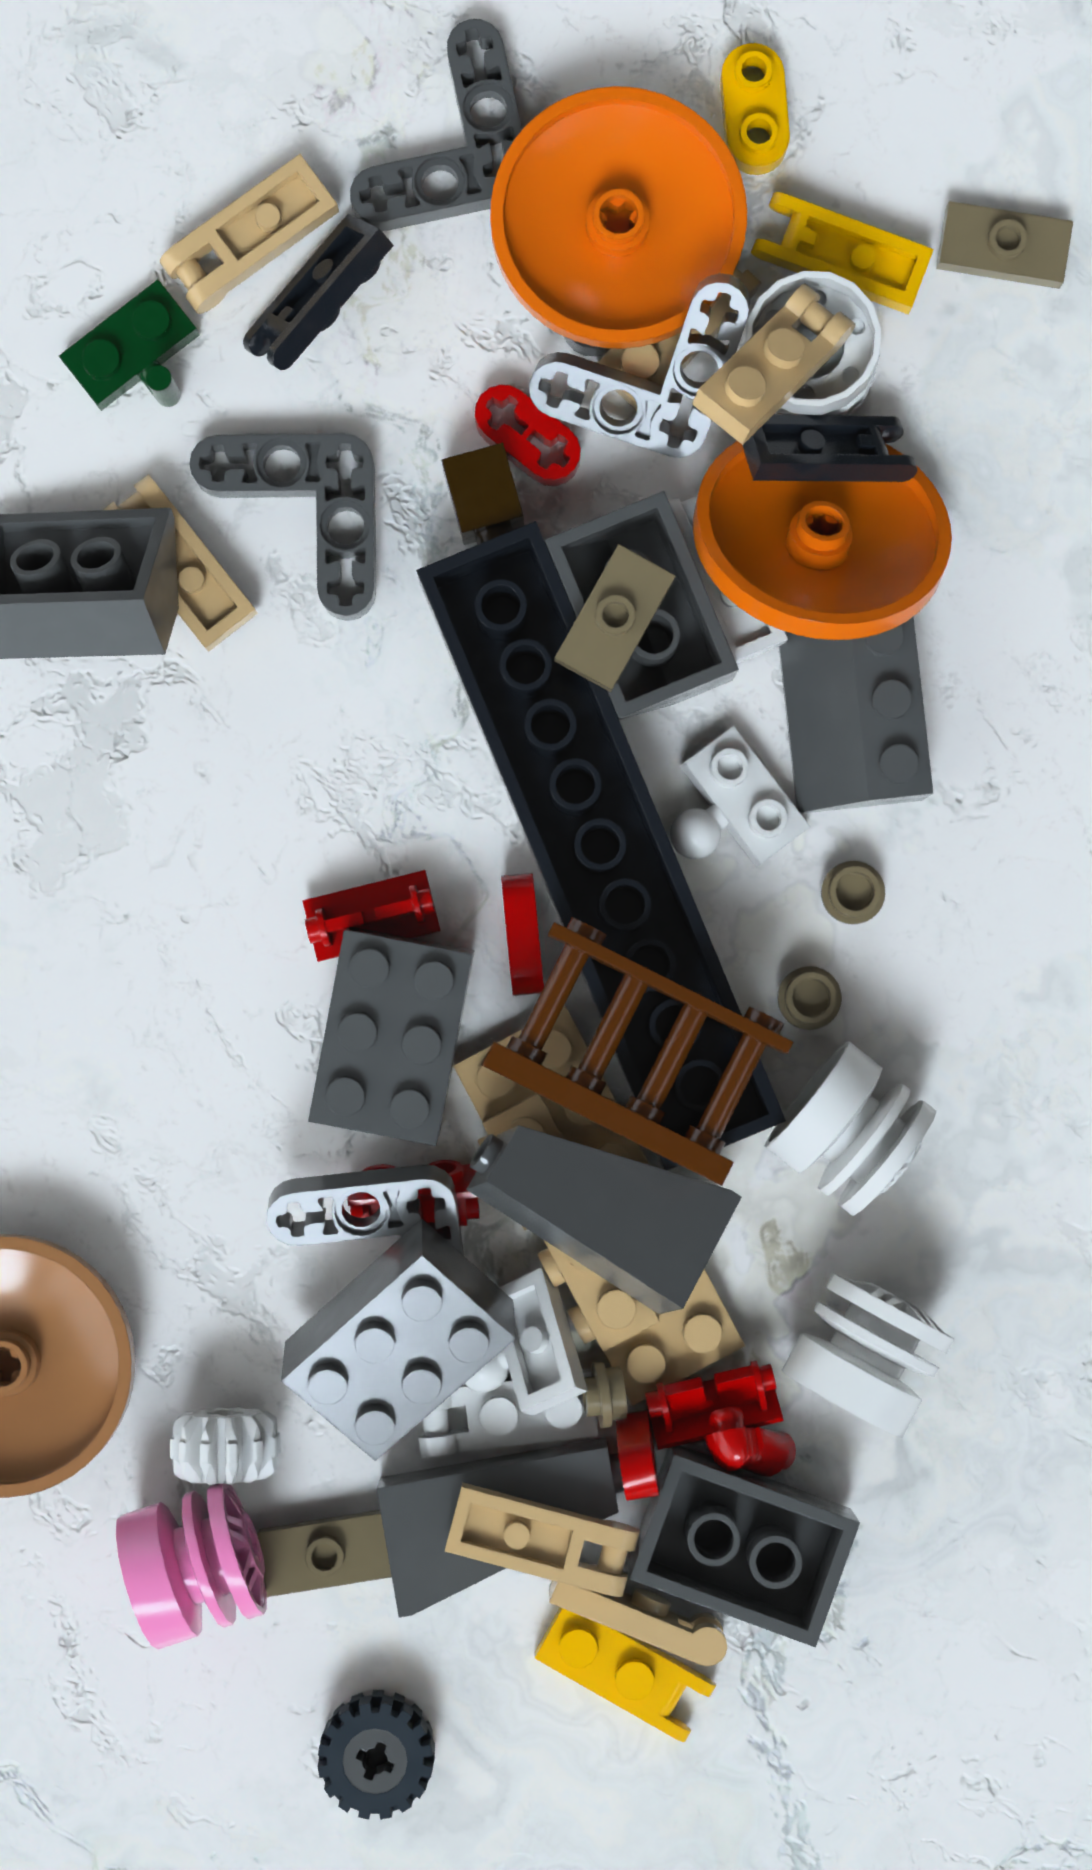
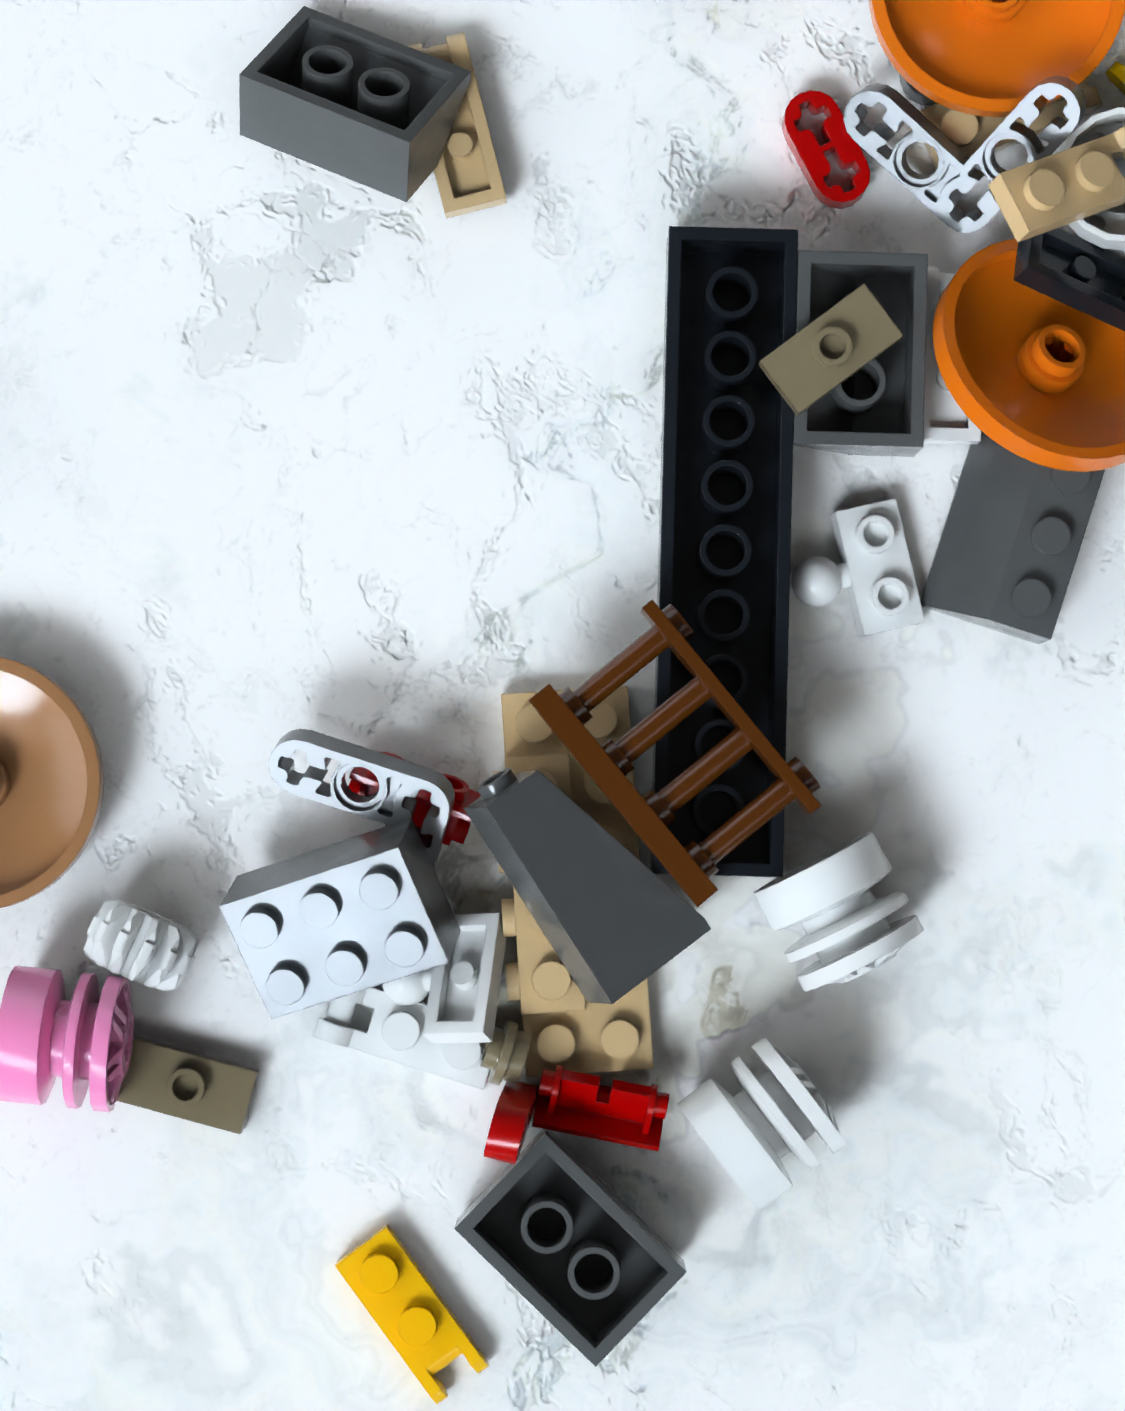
camera: 30 degrees right, 0 degrees up
(311, 481) = (610, 104): dark grey beam -> none
(384, 1730) = (170, 1270): black wheel -> none
(388, 906) = (487, 524): red hinge -> none
(391, 1035) = (457, 640): dark grey brick -> none
(422, 1503) = (347, 1115): dark grey slope -> none
(483, 493) = (761, 184): dark brown brick -> none
(522, 934) = (617, 602): red beam -> none
(540, 1539) = (388, 1156): tan plate -> none
(647, 1619) = (449, 1270): tan plate -> none
(752, 1449) = (617, 1163): red arm -> none
(809, 998) = (854, 778): dark tan plate -> none
(853, 892) = (937, 699): dark tan plate -> none

